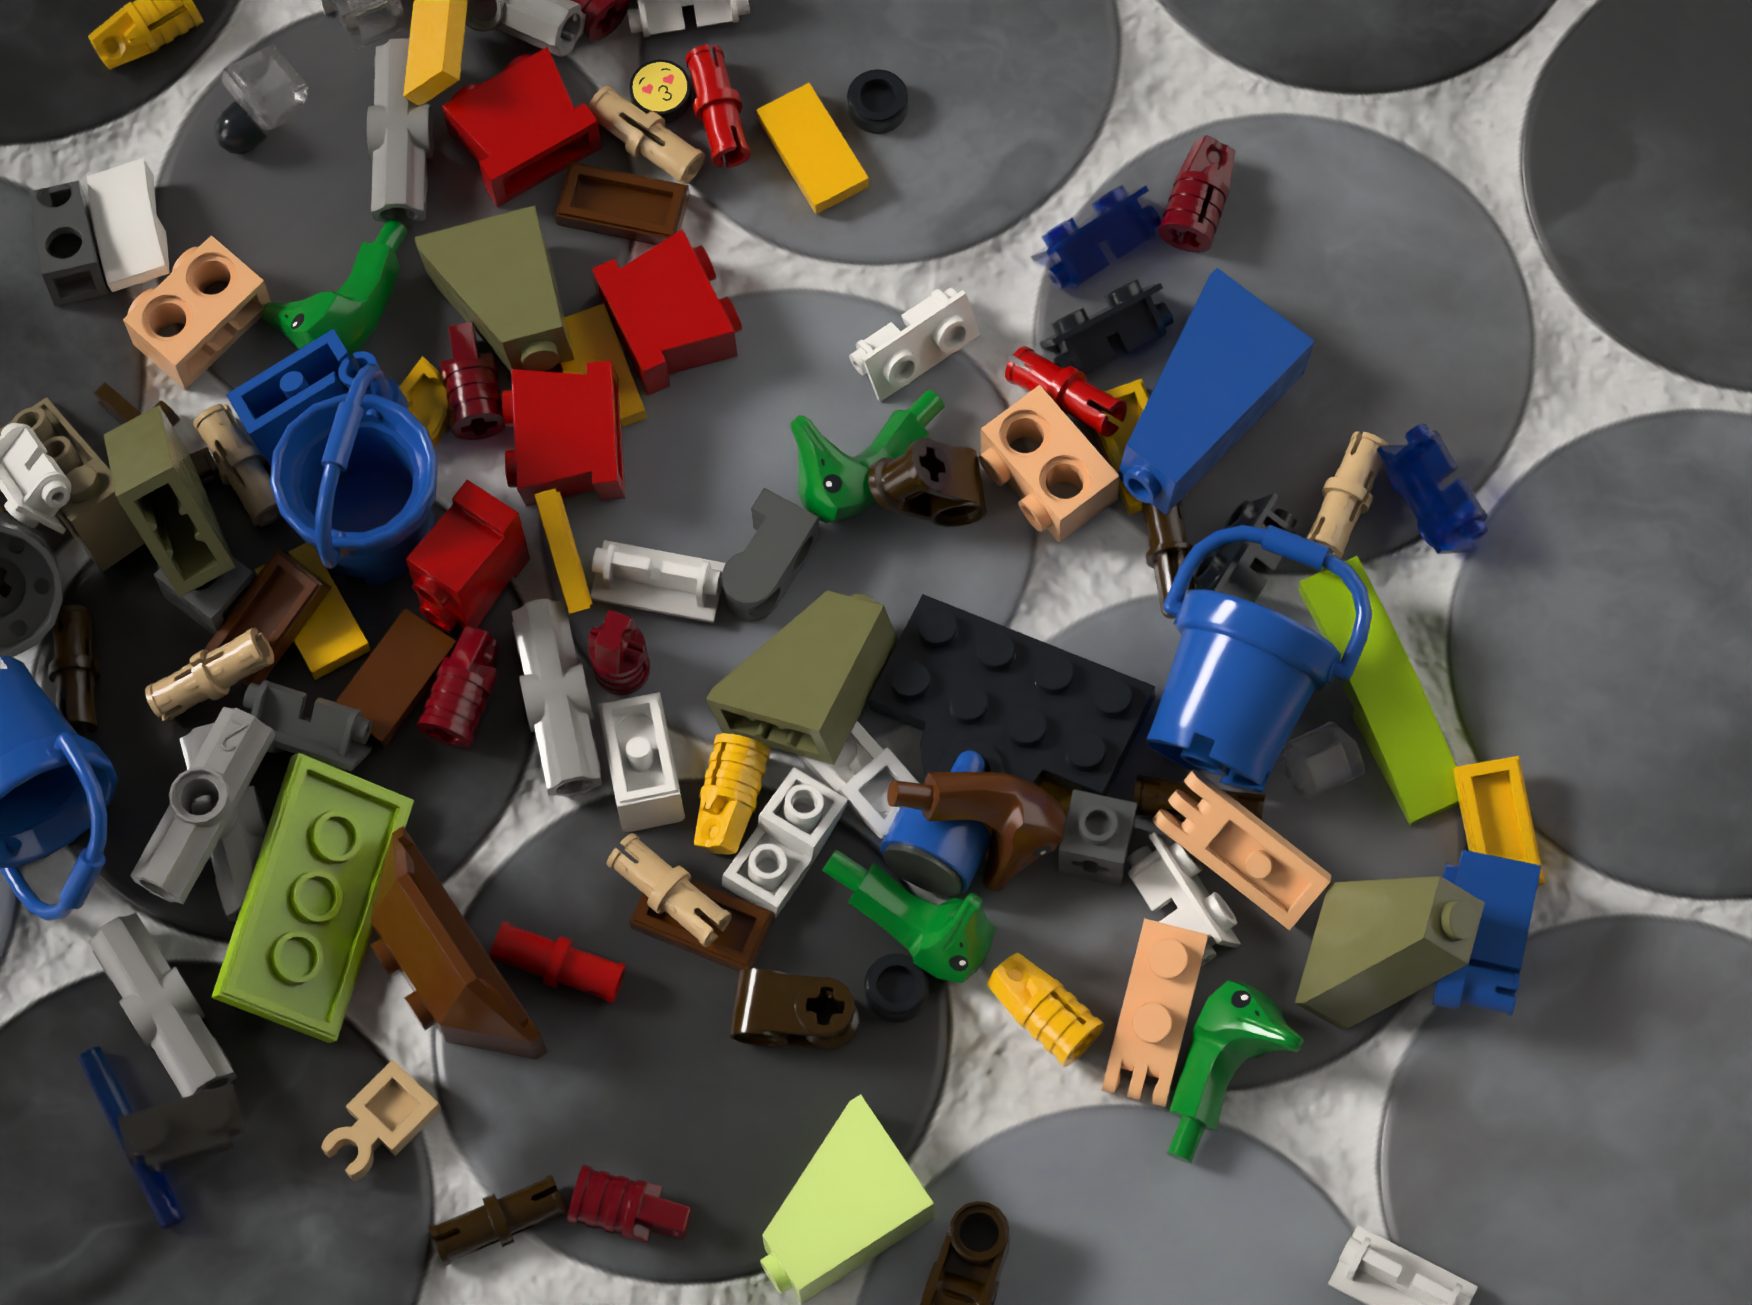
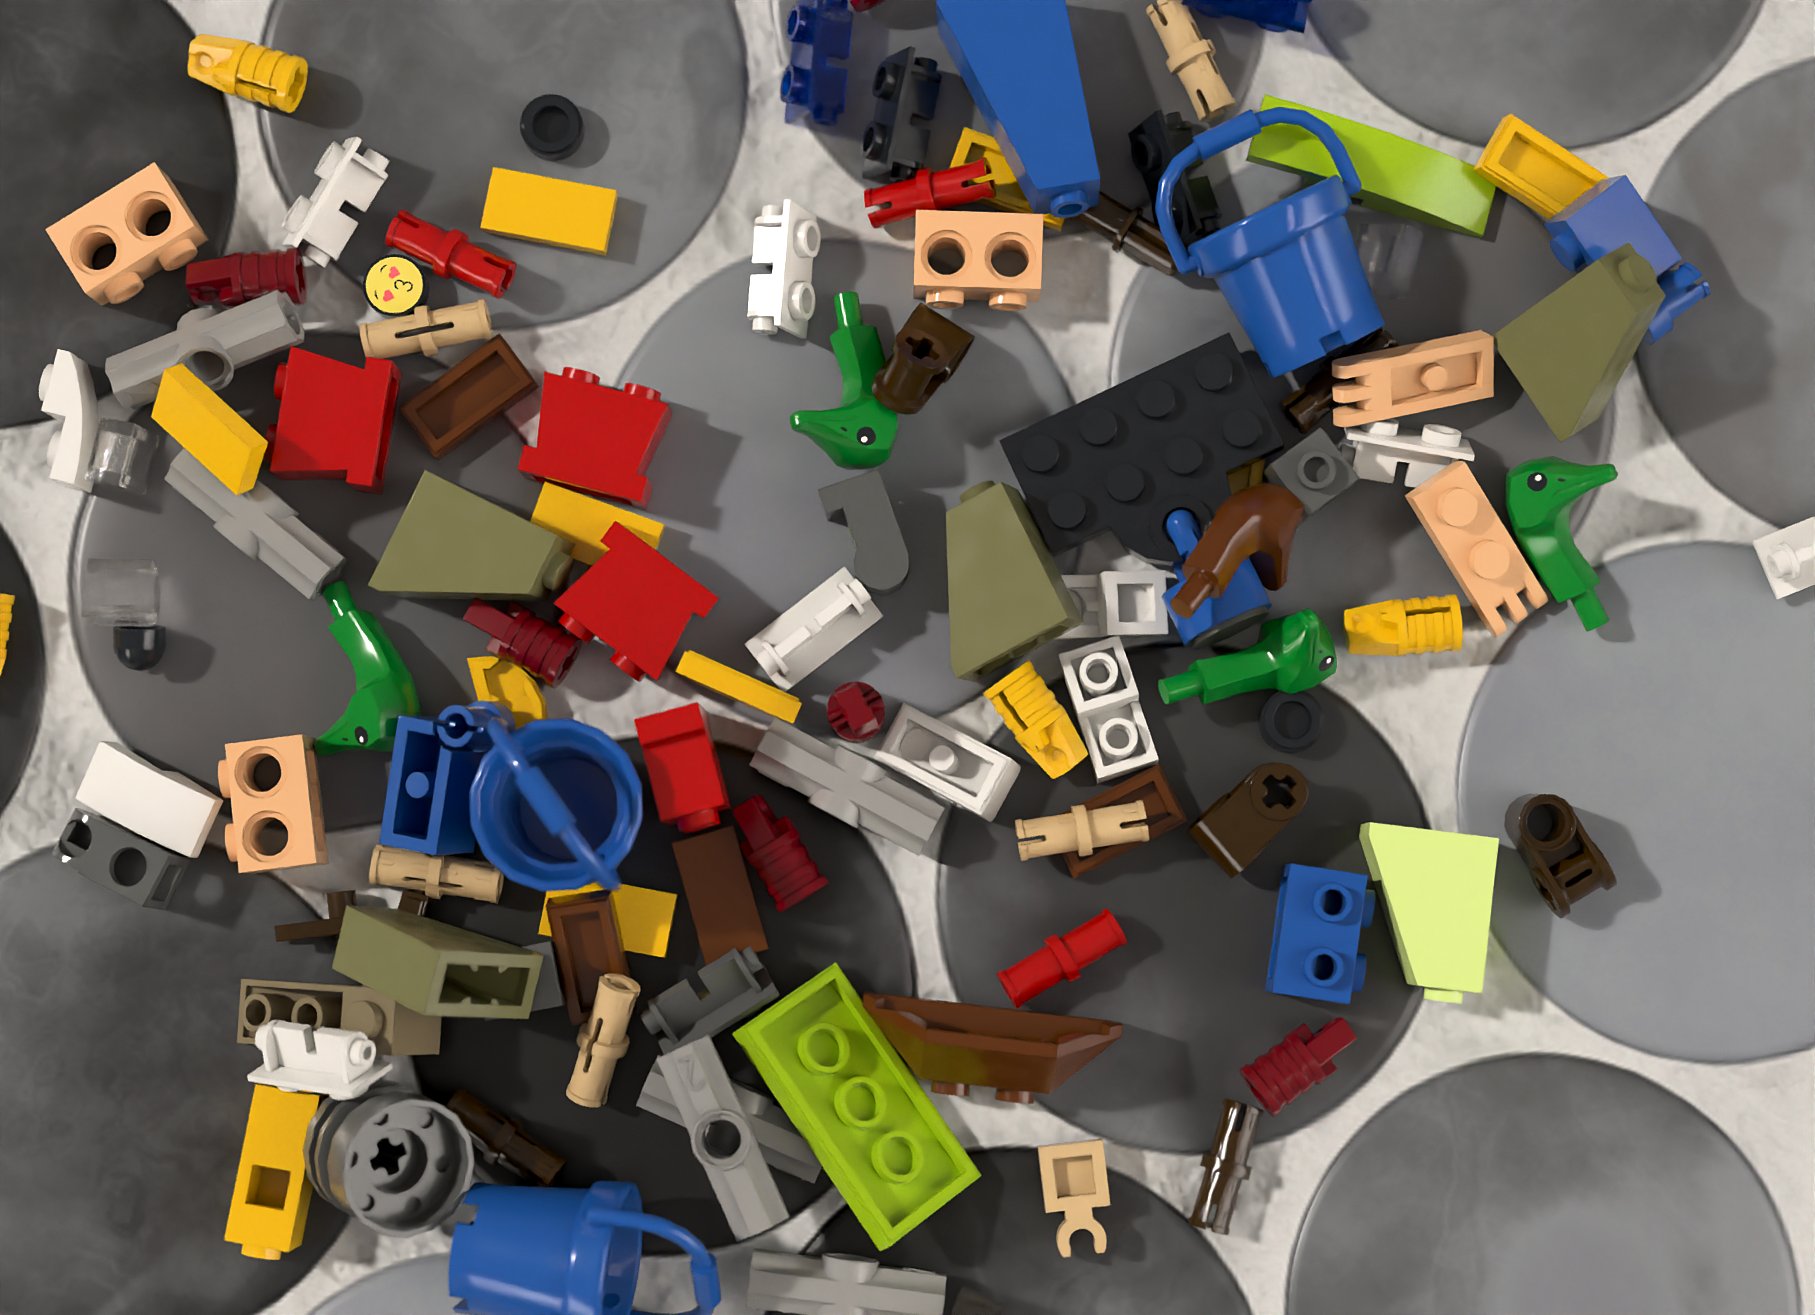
camera: 55 degrees left, 15 degrees up
(742, 1137) = (1319, 933): none -> blue brick

